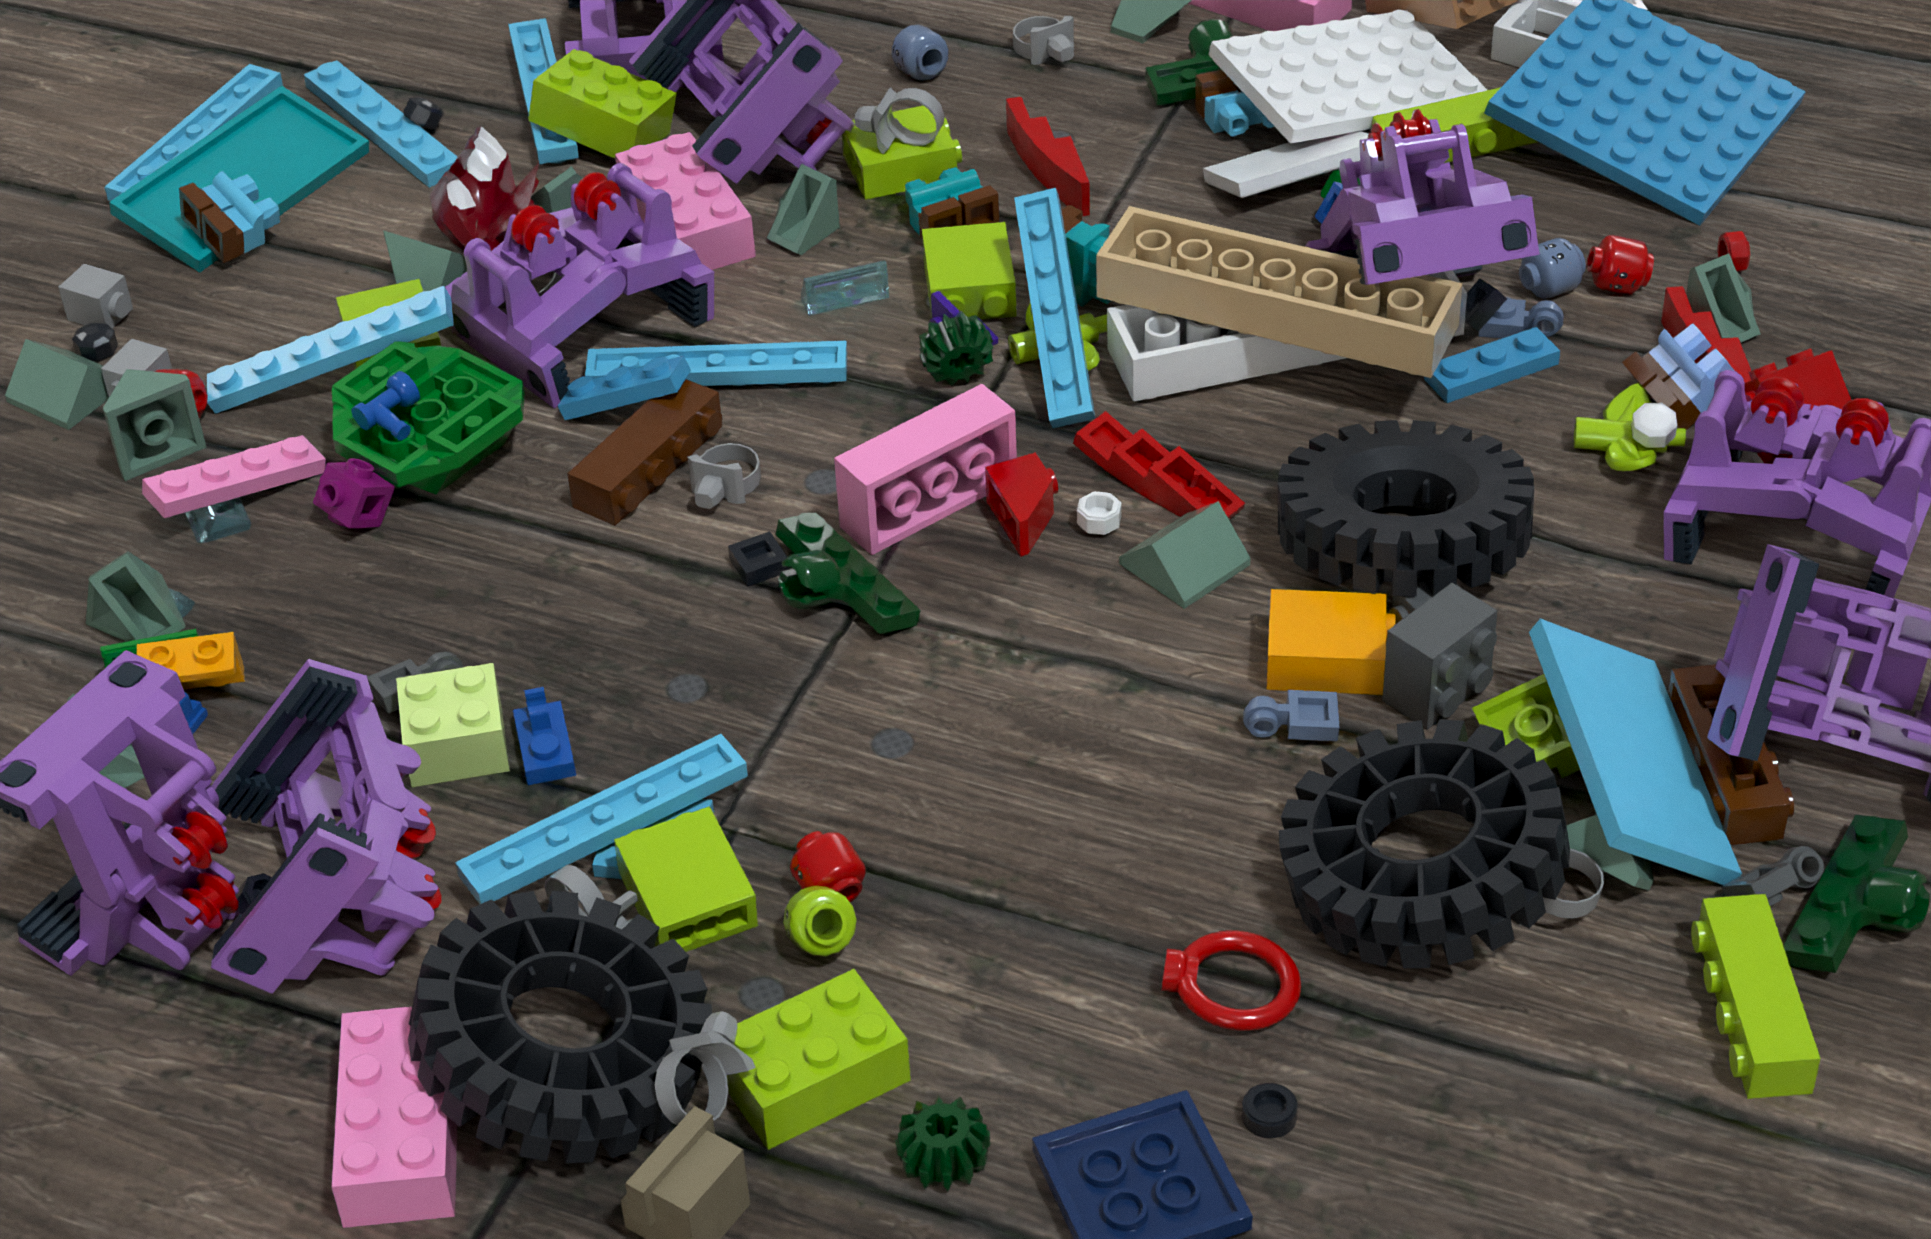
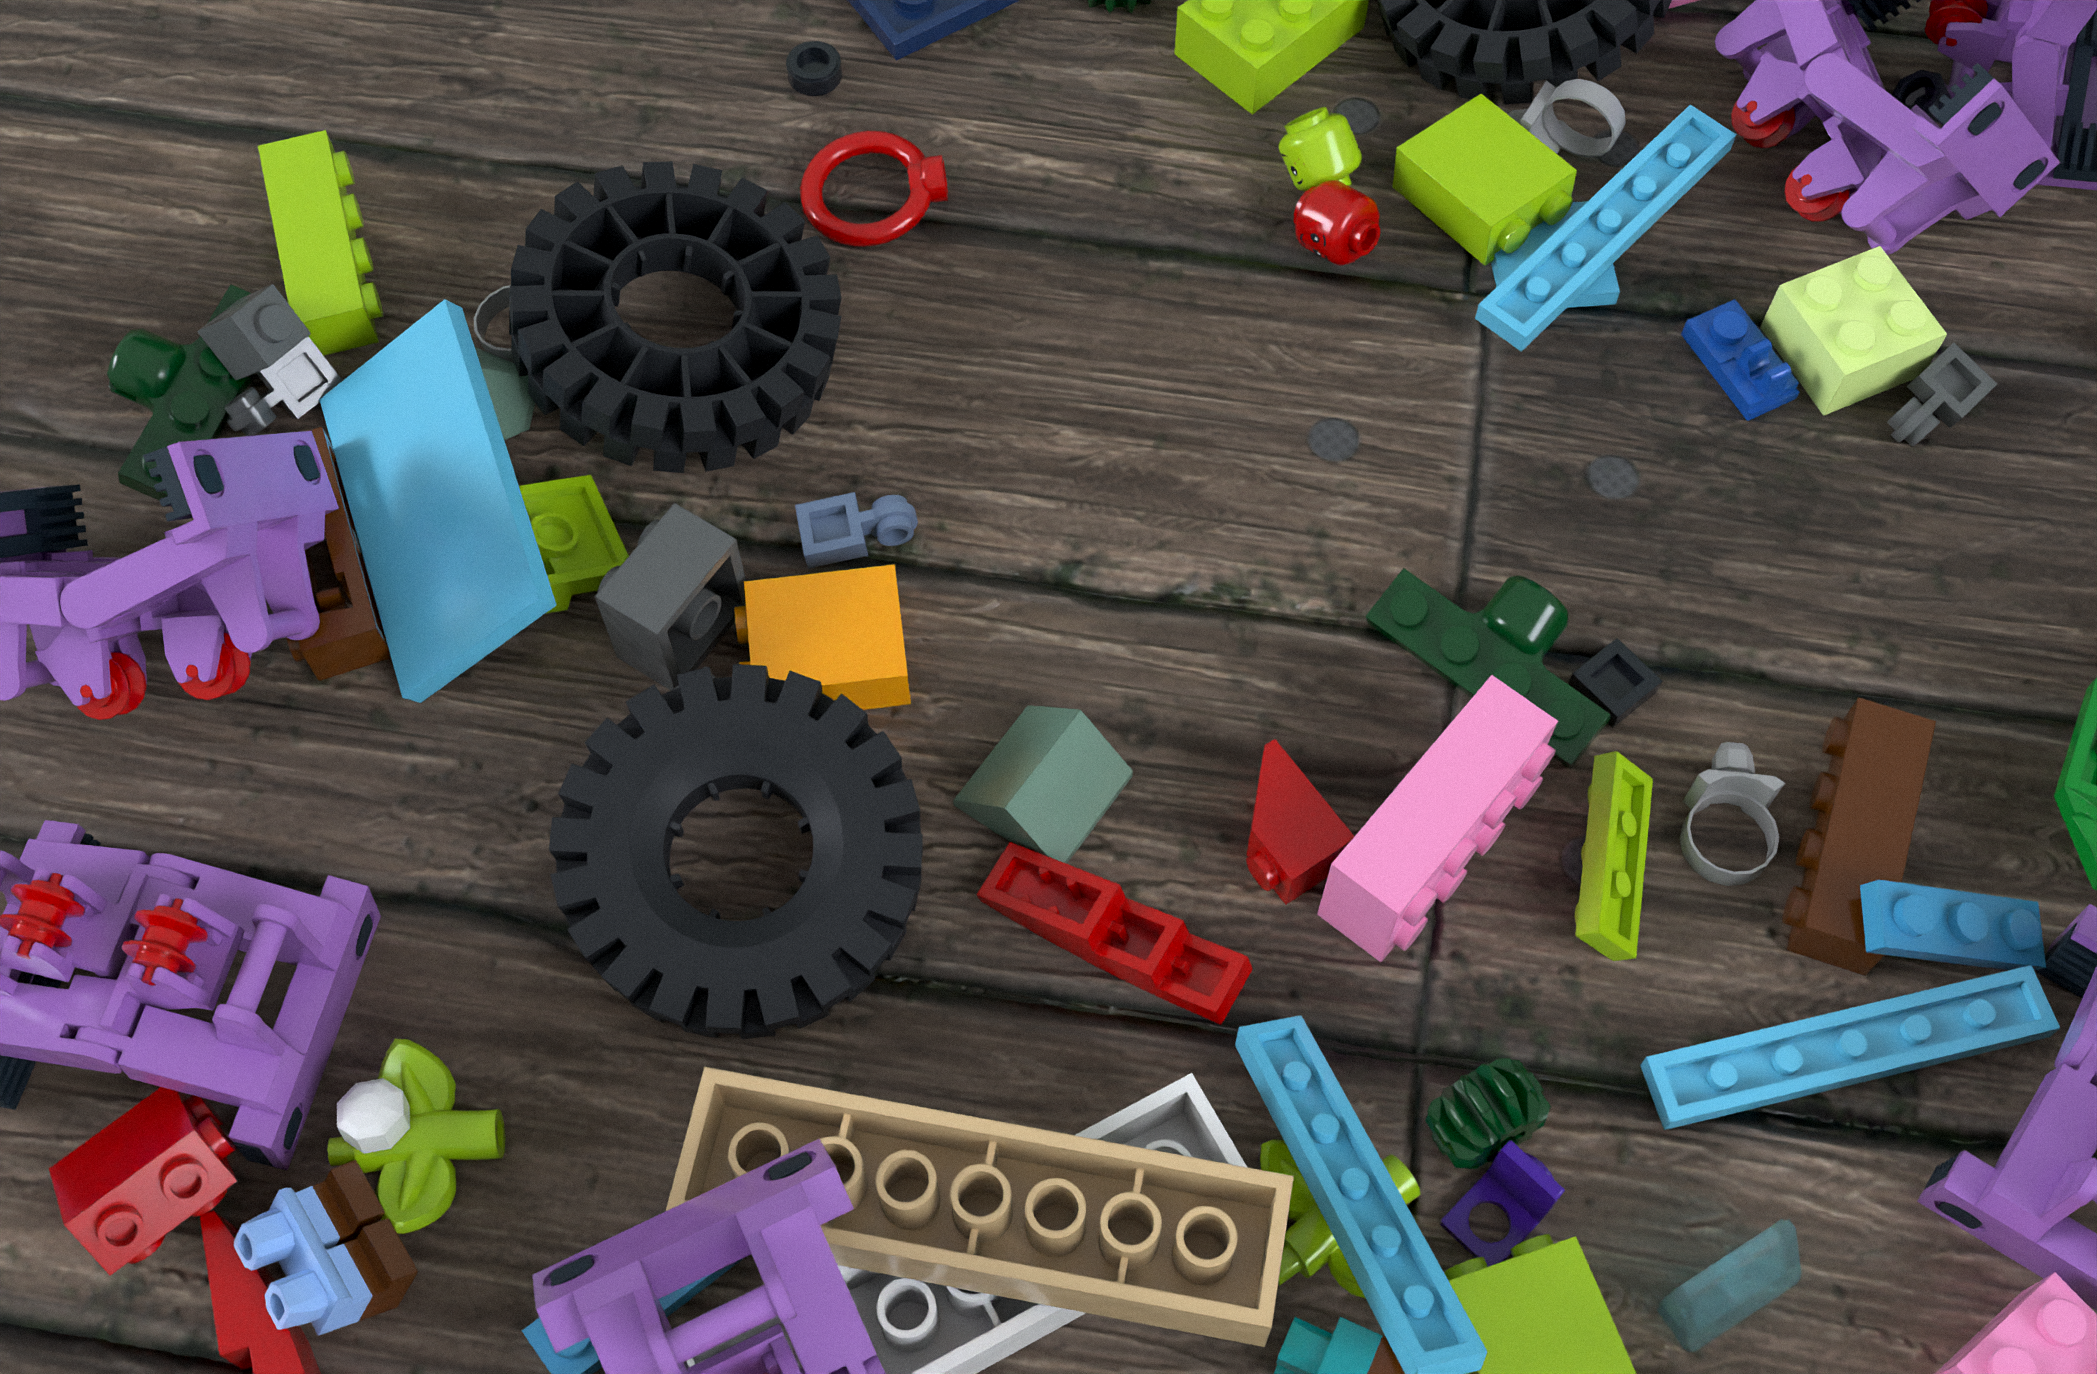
camera: 165 degrees right, 20 degrees up
(813, 462) = (1614, 857): none -> lime plate
(1099, 513) = (1178, 835): white tile -> none
(1796, 880) = (254, 332): none -> dark grey brick

